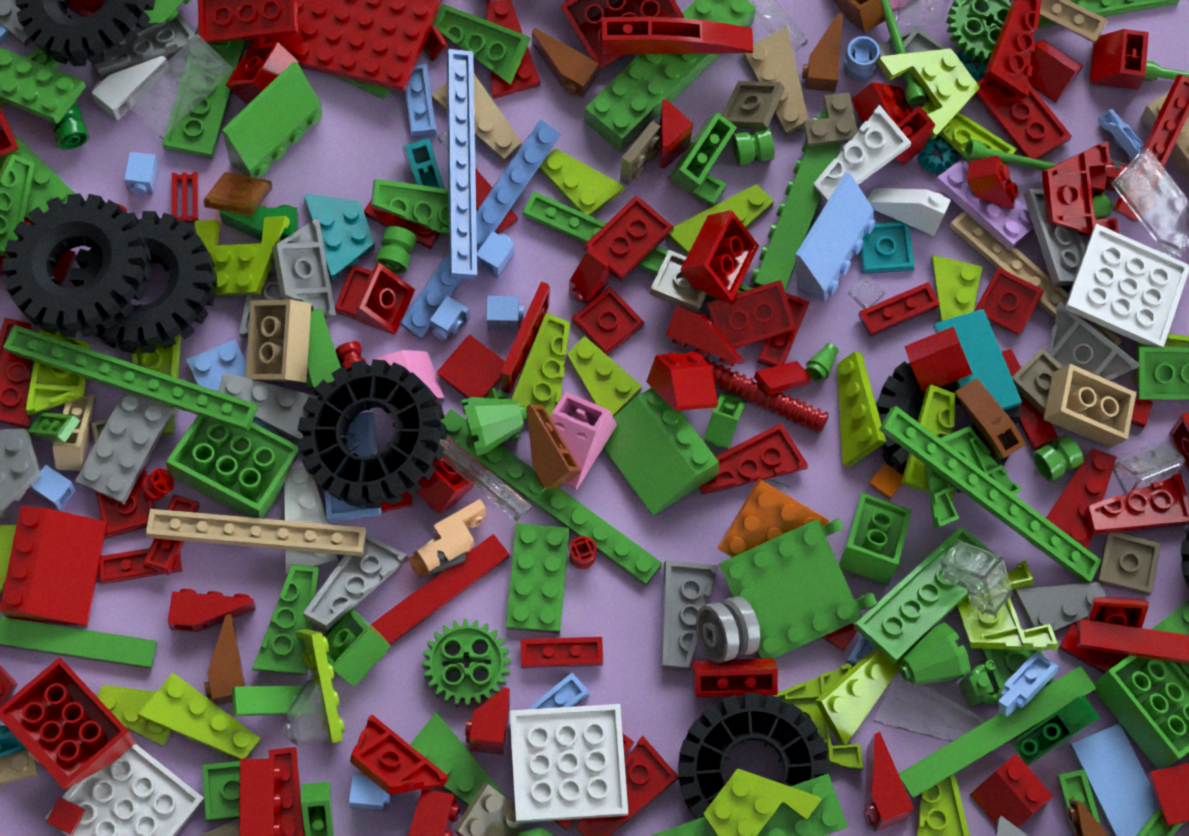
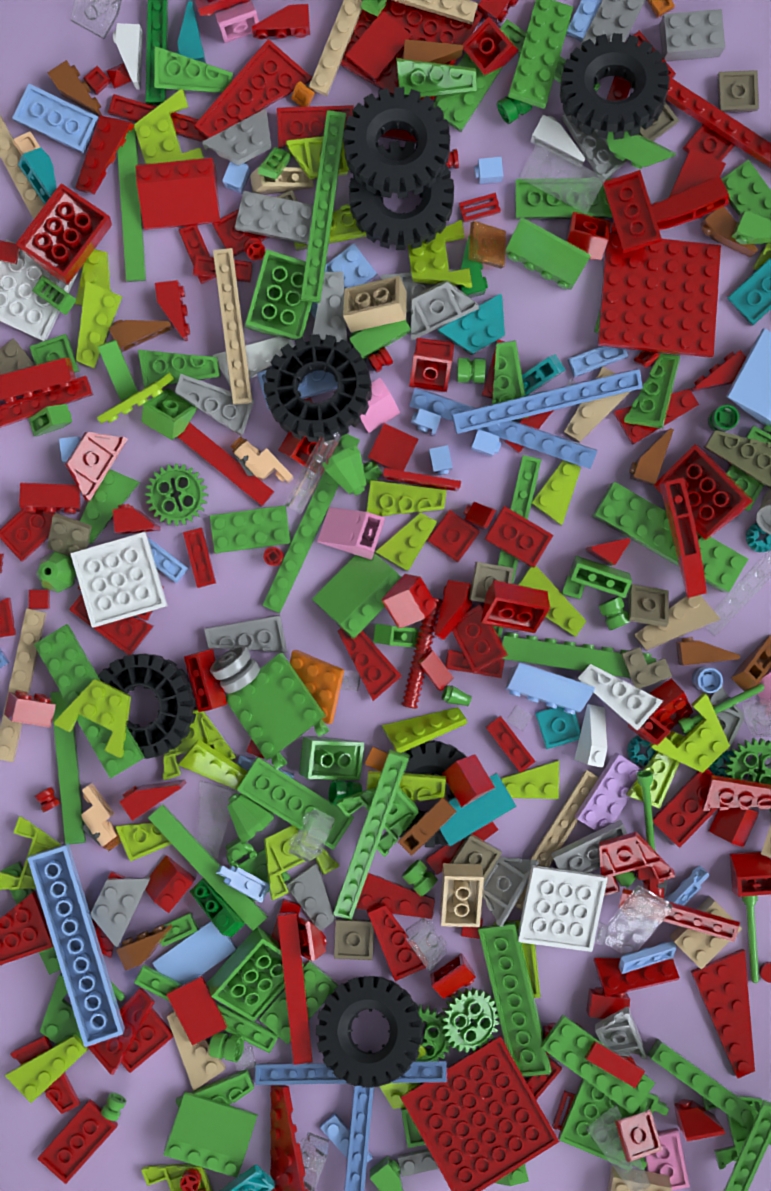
camera: 75 degrees right, 20 degrees up
(145, 750) = (65, 300): none -> bright green slope
(306, 716) = (110, 394): clear slope -> none
(548, 450) = (335, 517): dark orange slope -> none
(641, 151) = (594, 534): dark tan plate -> none
(921, 532) = (339, 789): none -> green wheel
(992, 183) = (621, 796): red slope -> none
(1009, 301) = (534, 822): red tile -> none

